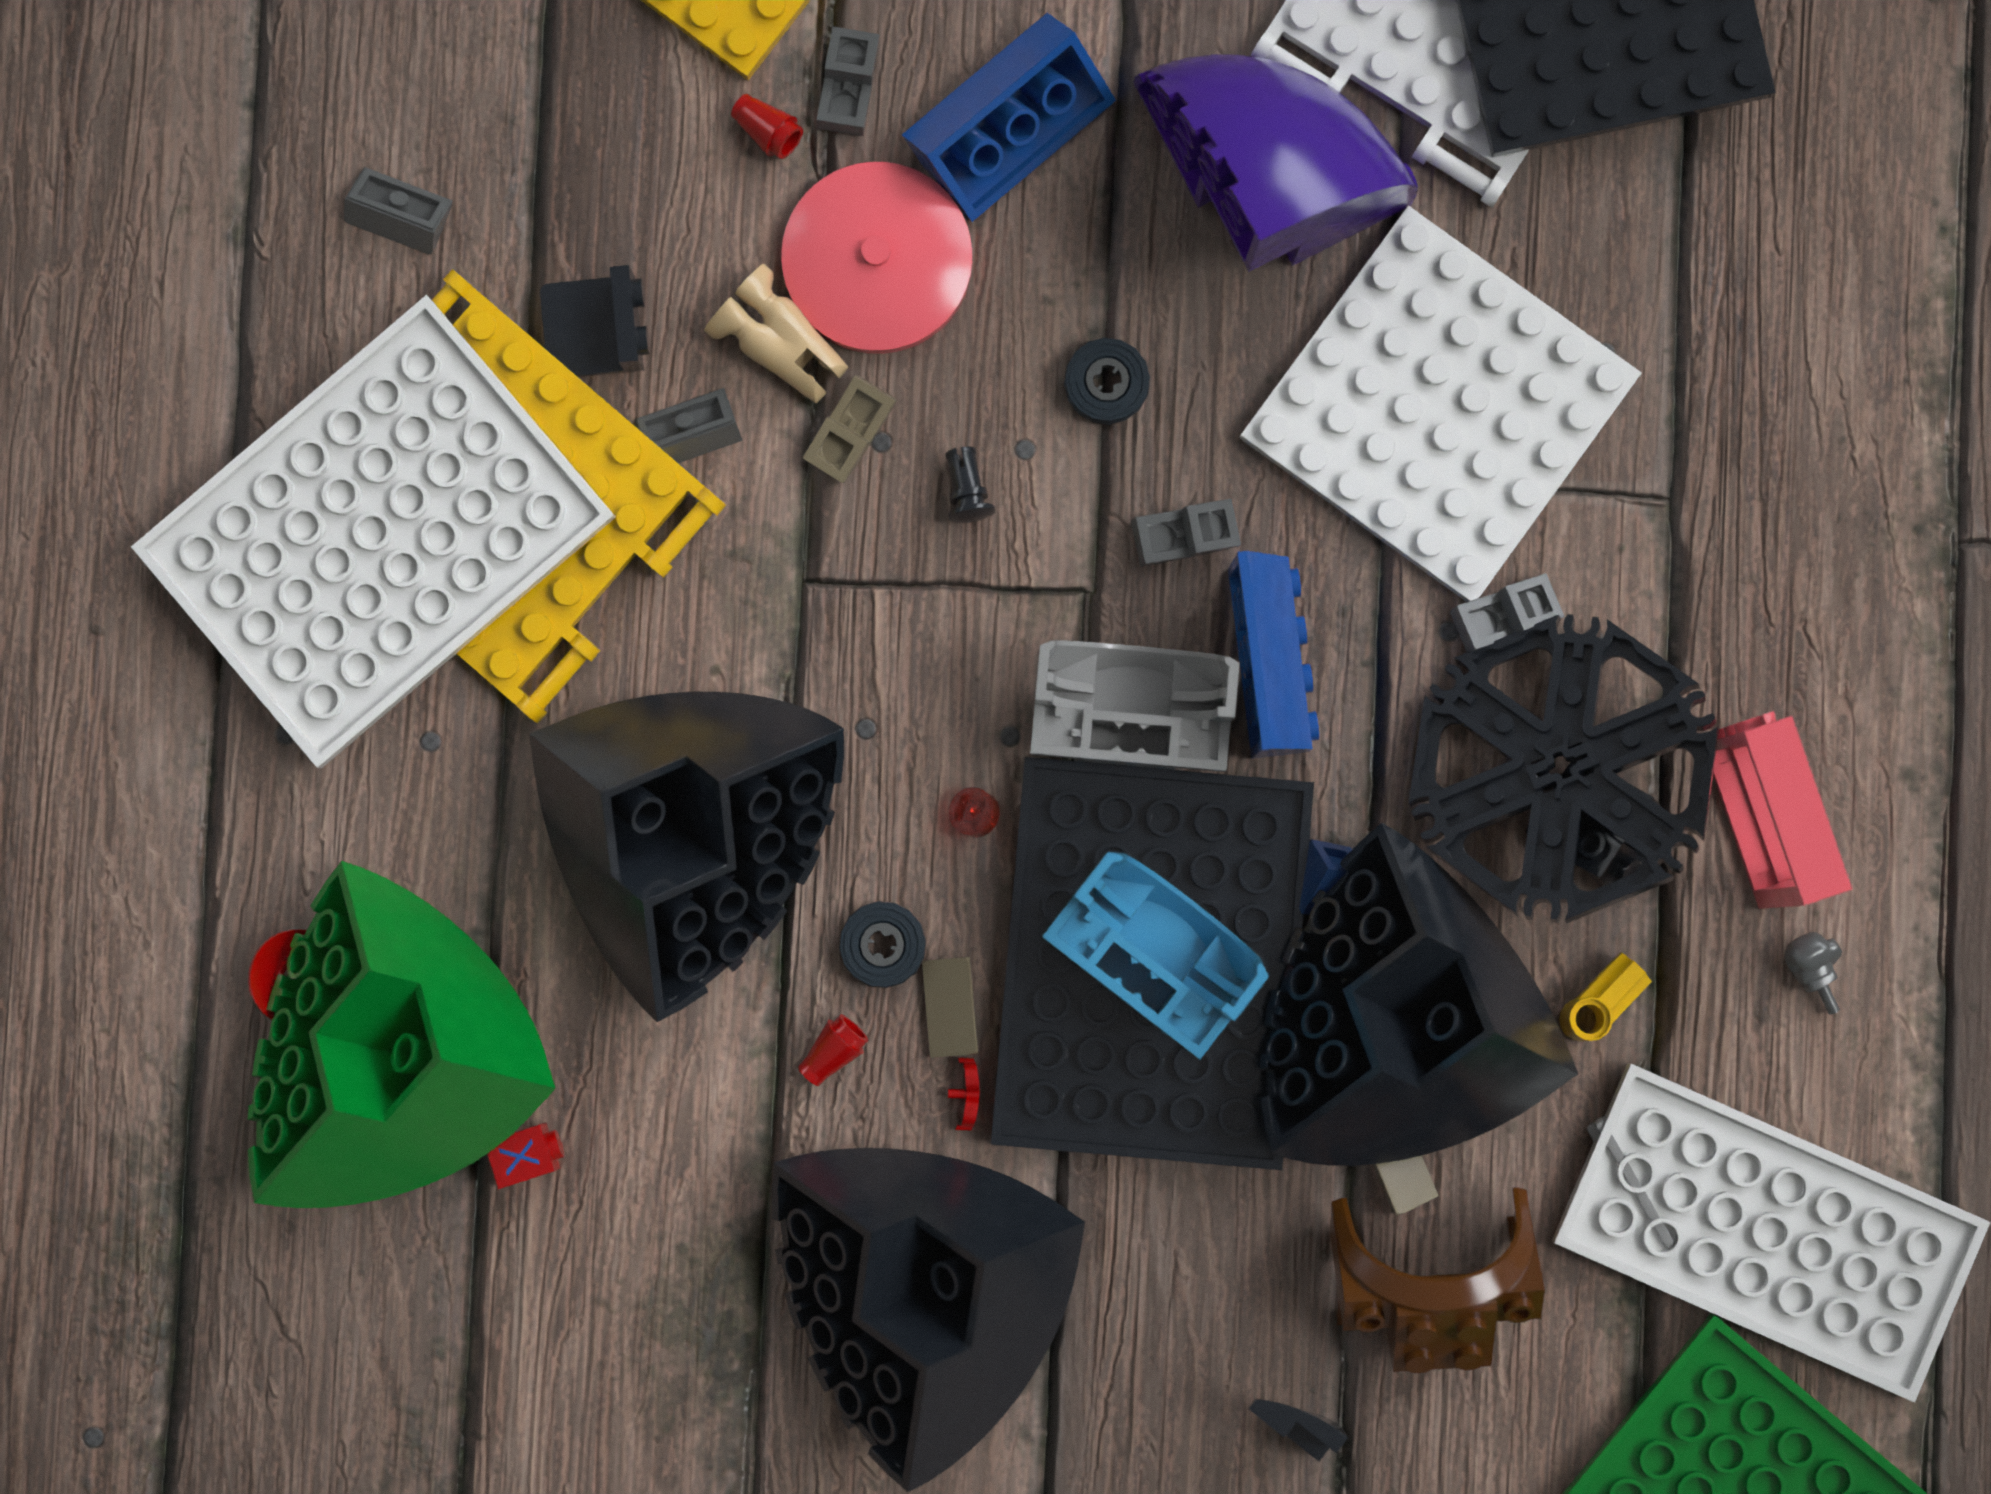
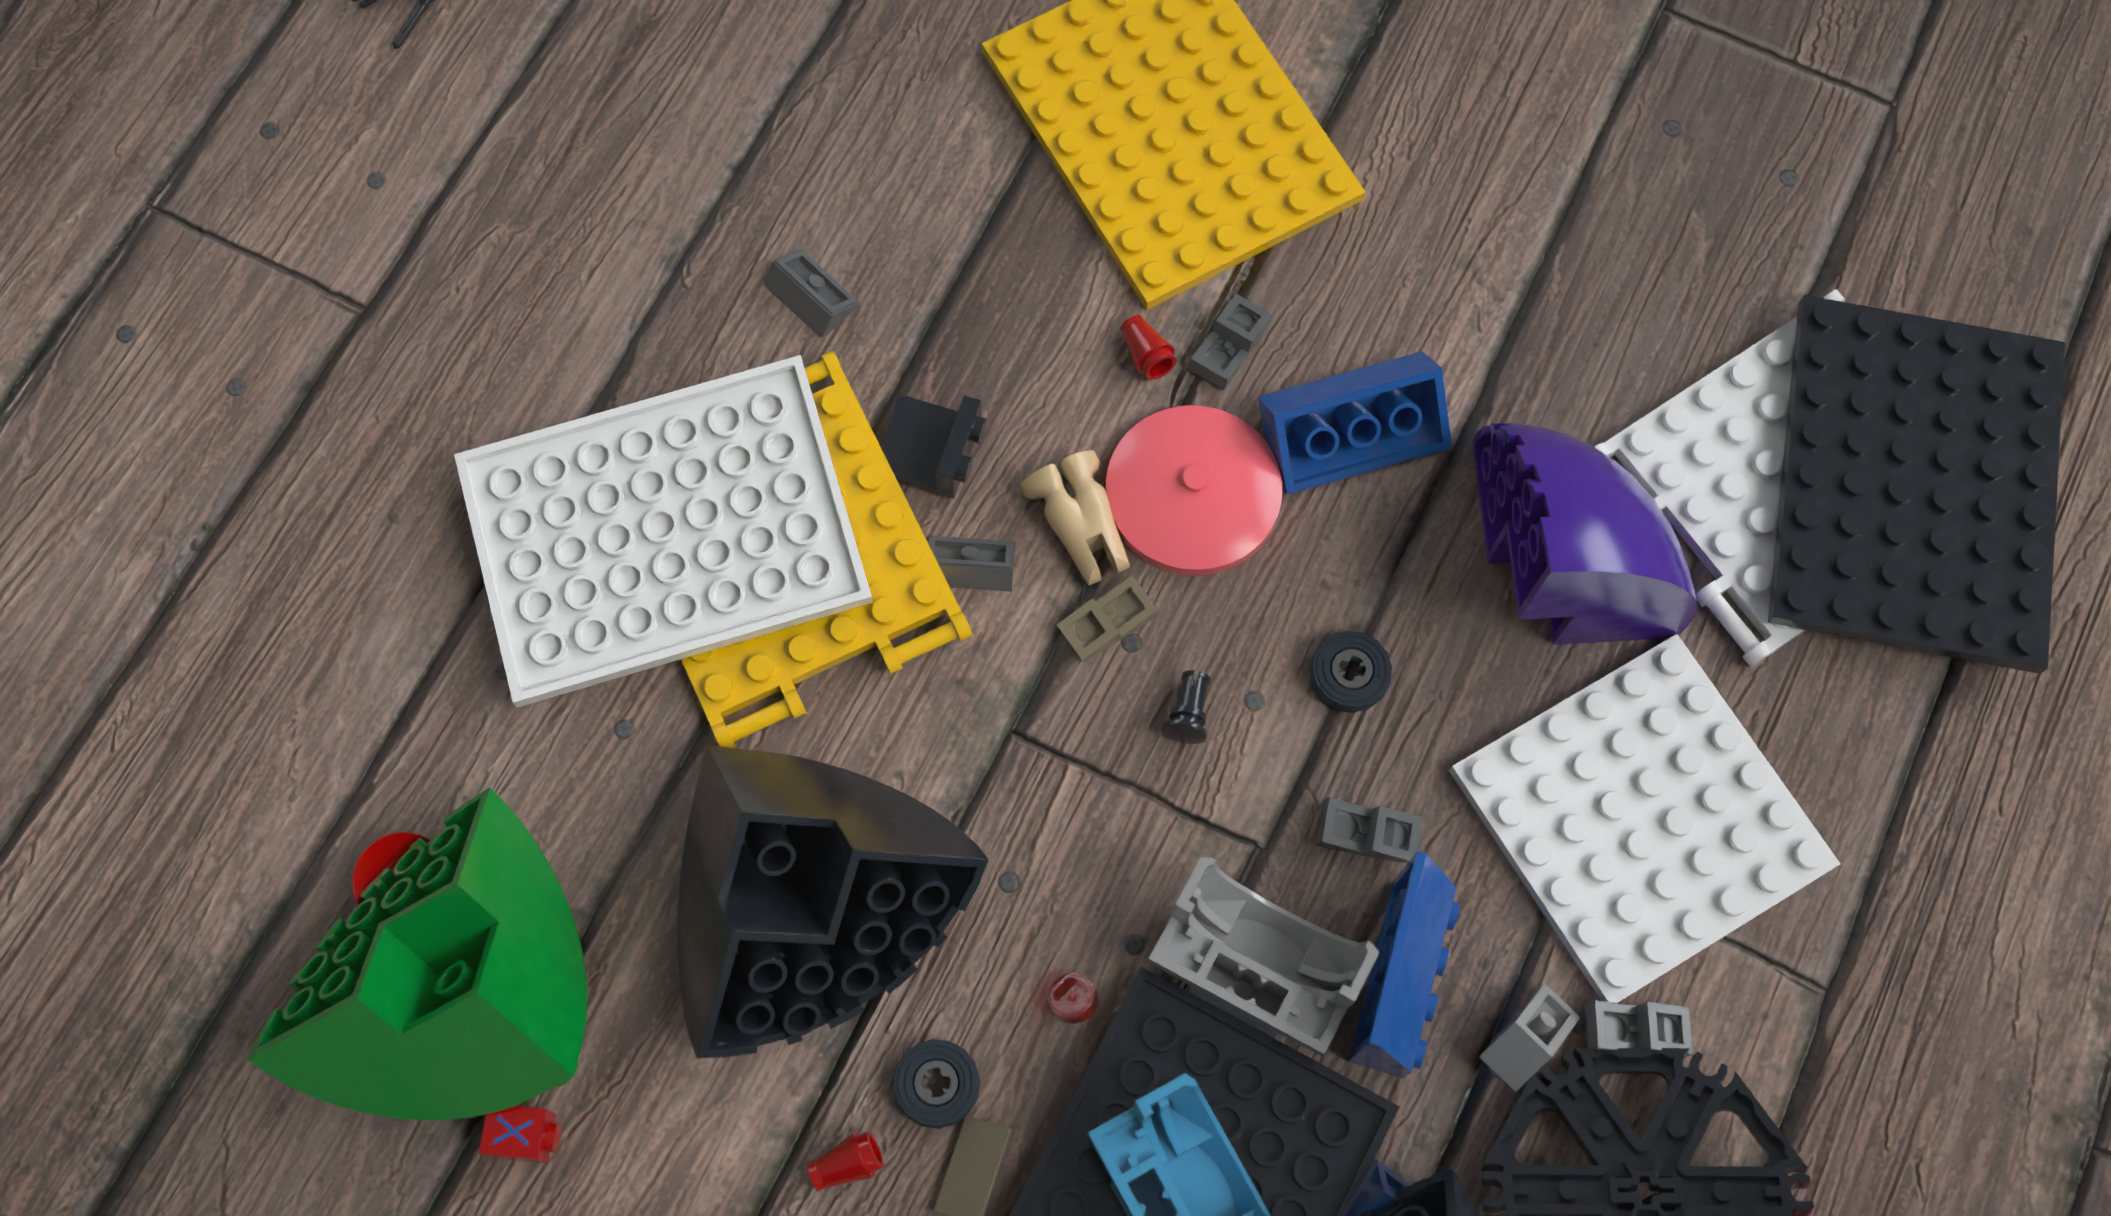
camera: 20 degrees right, 15 degrees down
(1410, 666) = (1530, 1038): none -> light grey slope

